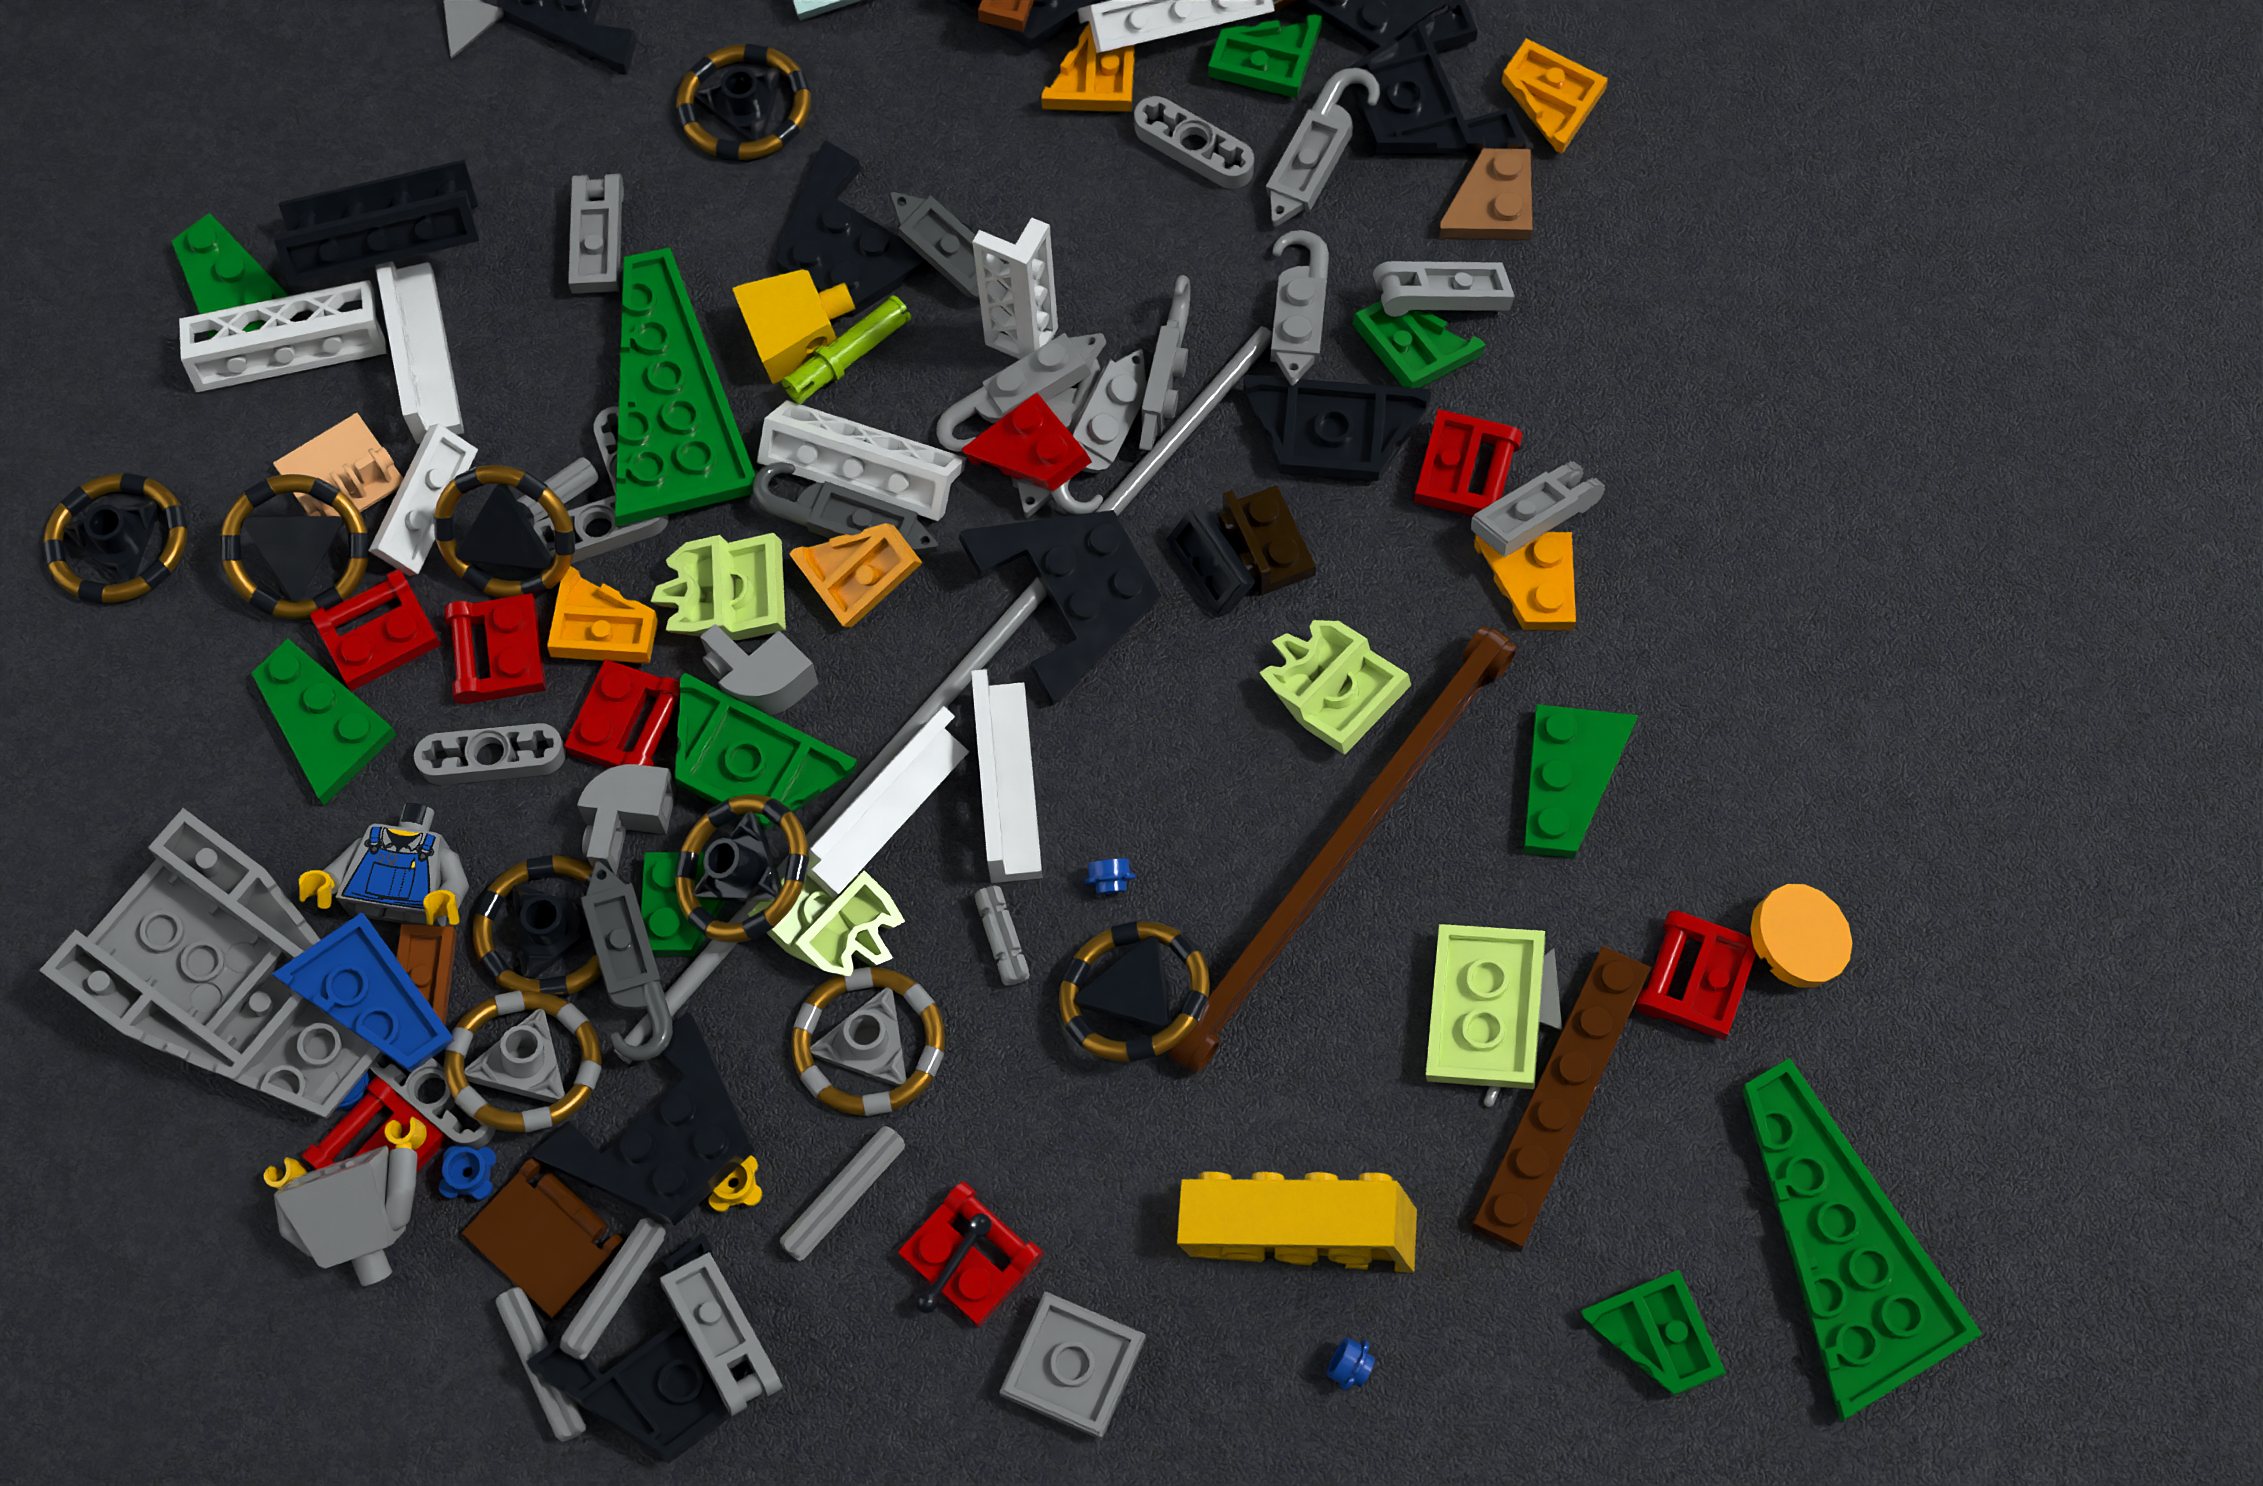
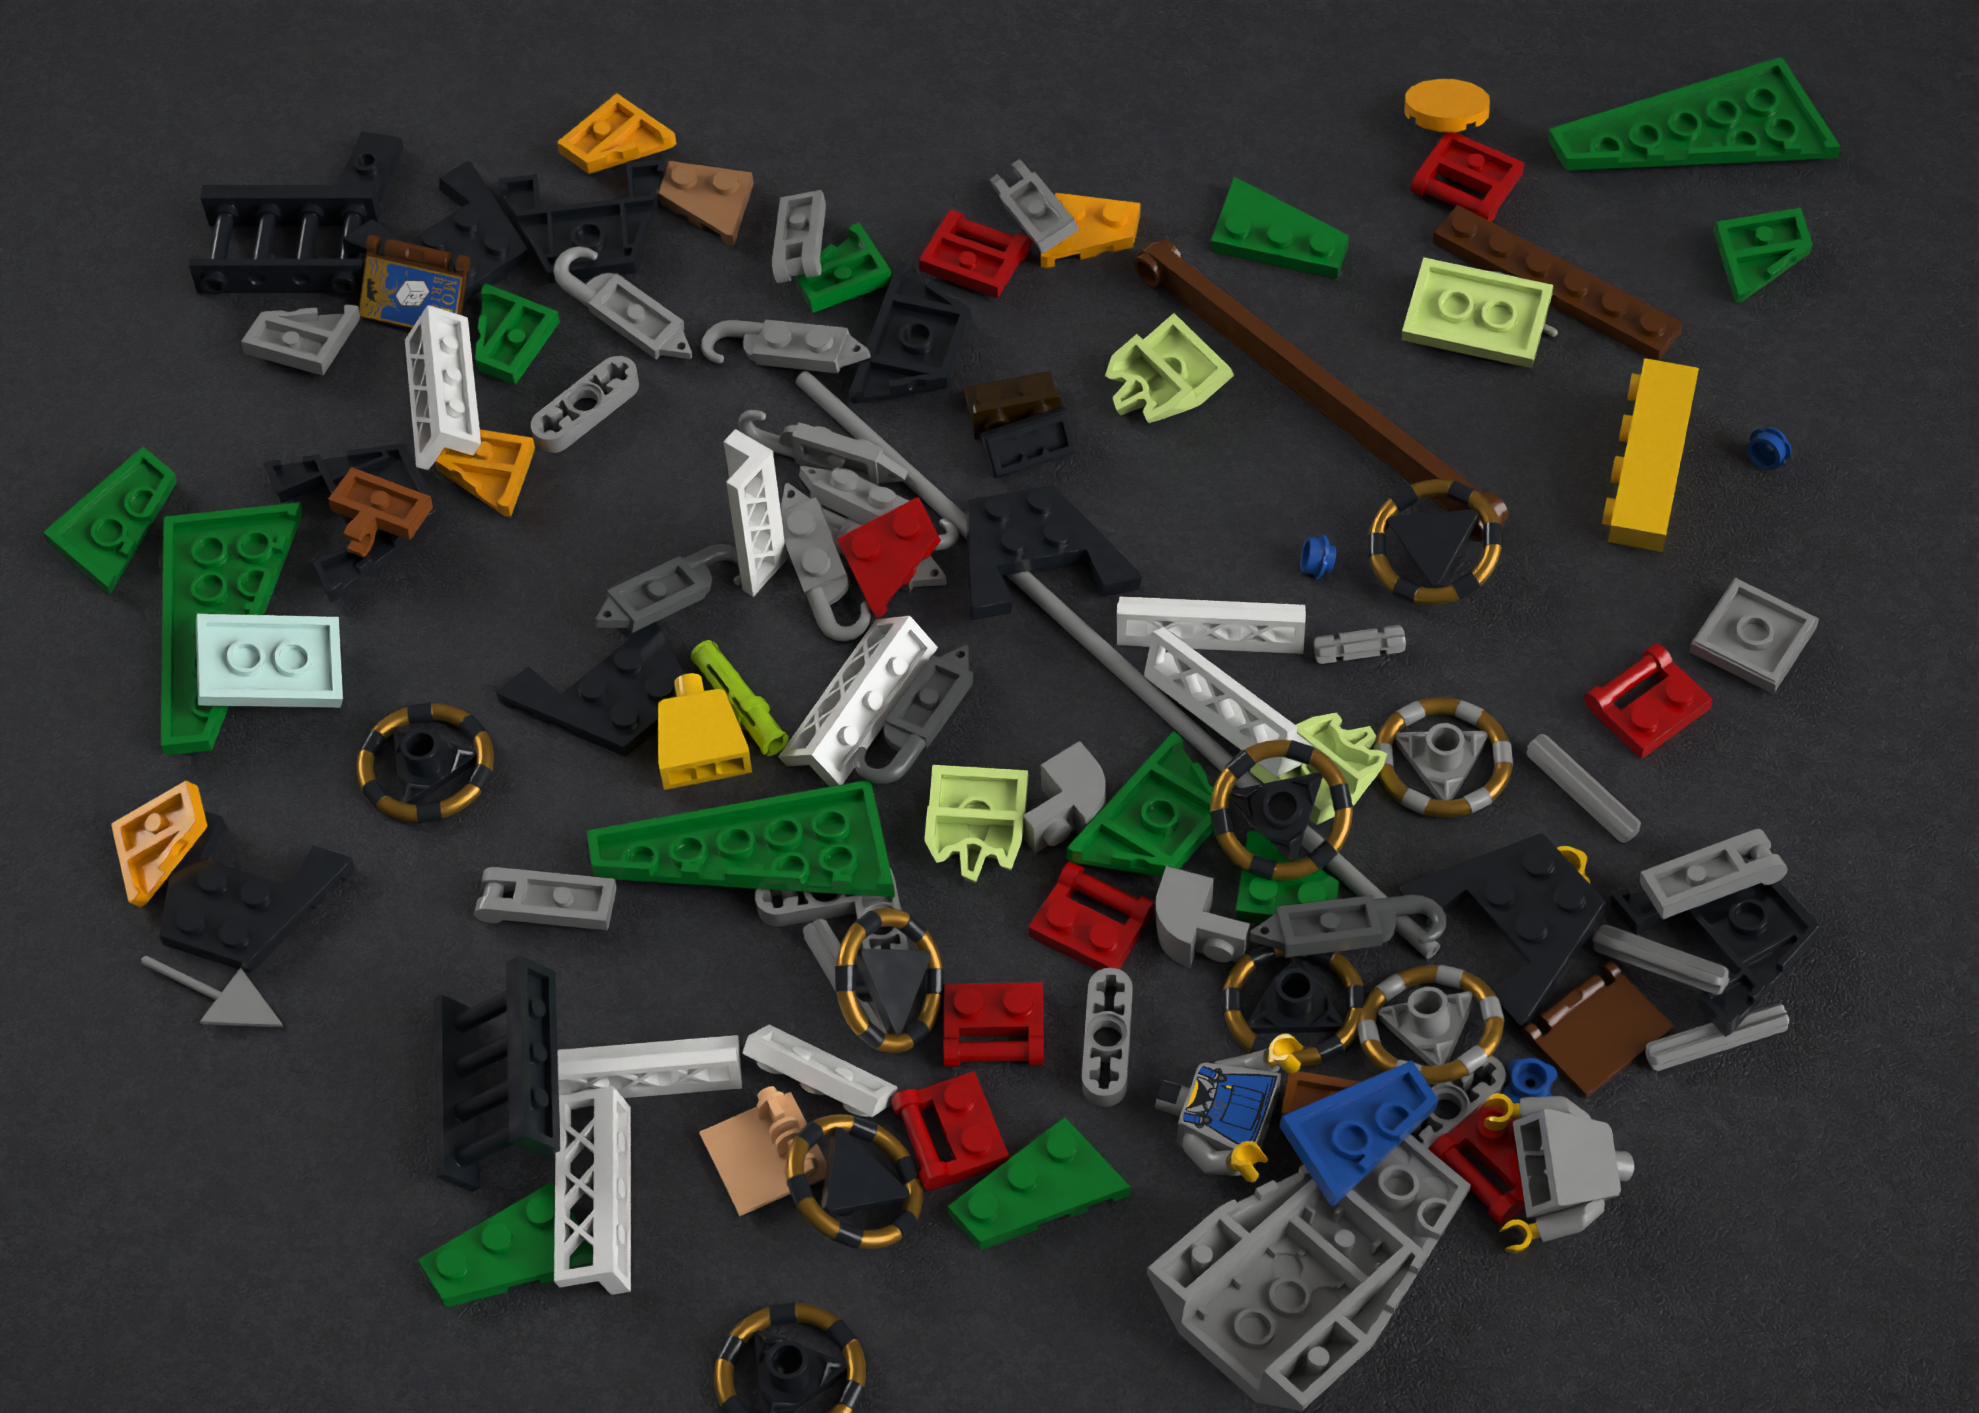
camera: 80 degrees left, 10 degrees down
(599, 623) = (990, 928): light orange wing -> none
(857, 569) = (983, 704): light orange wing -> none
(980, 1226) = (1630, 681): black hinge -> none

